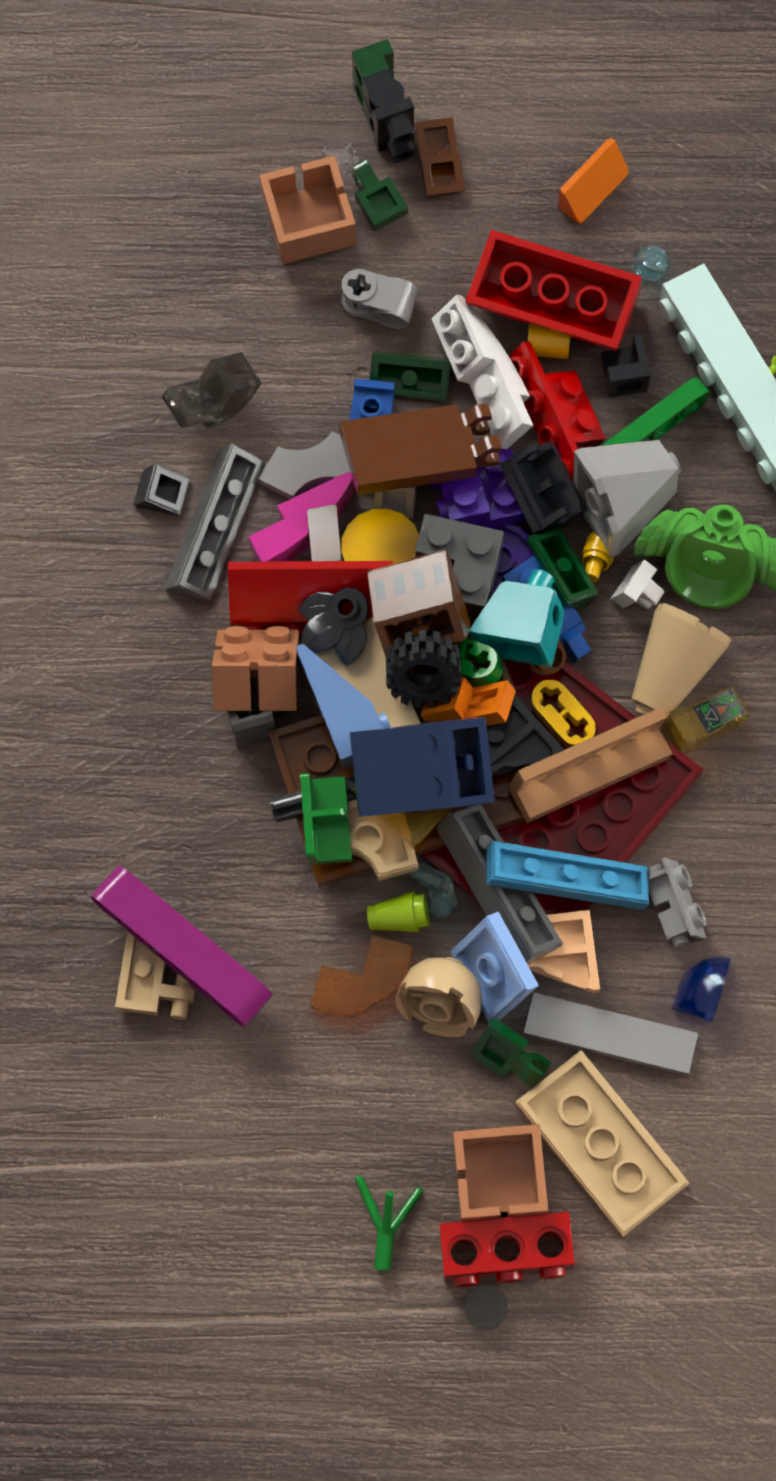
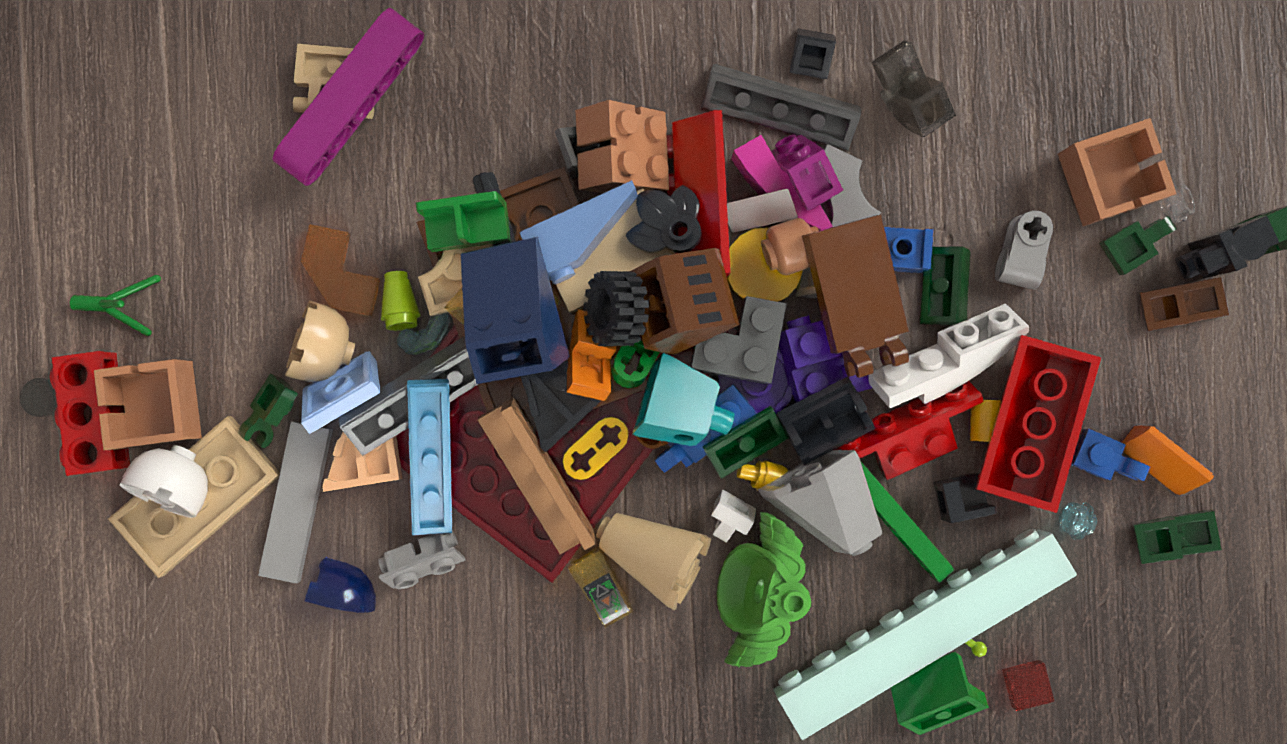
camera: 85 degrees right, 15 degrees up
(286, 489) = (807, 169): none -> magenta bracket
(364, 515) = (785, 246): none -> nougat head
(585, 1149) = (168, 479): none -> white cylinder
(589, 237) = (1103, 456): none -> blue plate
(669, 174) = (1177, 536): none -> dark green slope

